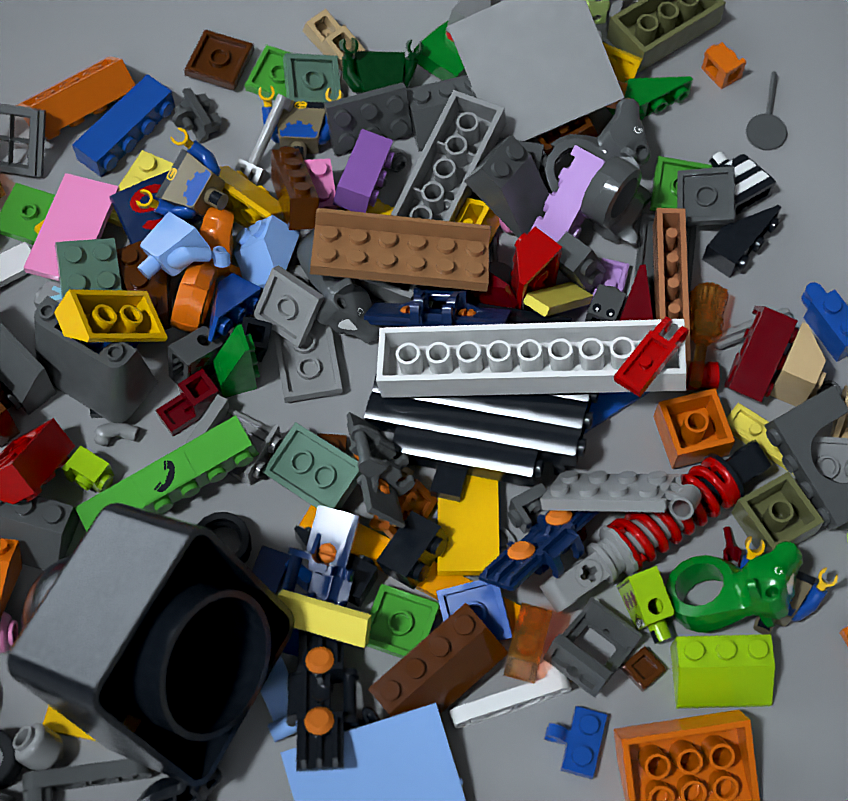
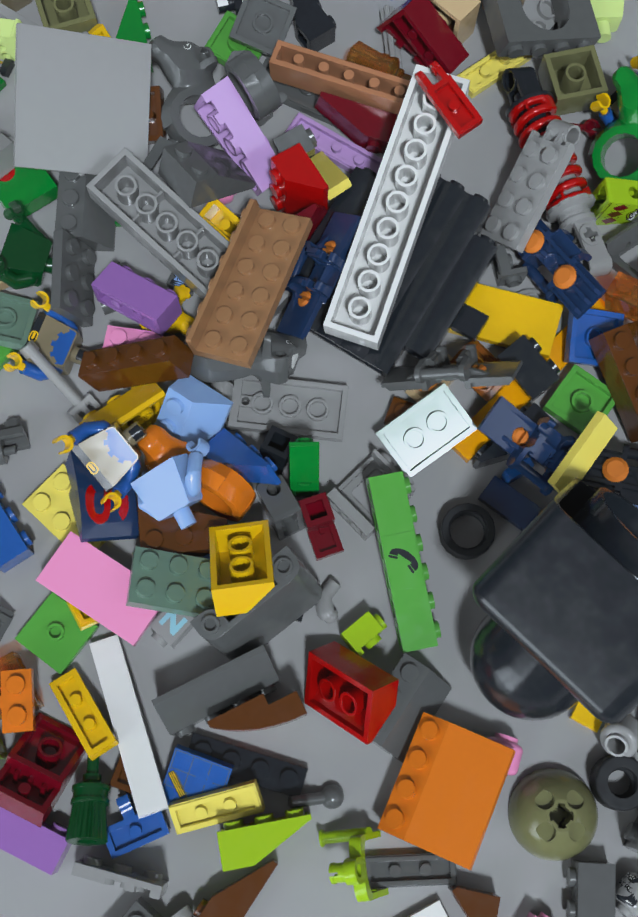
camera: 75 degrees left, 10 degrees up
(288, 305) = (261, 404): light grey plate -> none
(606, 304) = (344, 142): dark grey brick -> none
(693, 428) = (490, 103): orange brick -> none

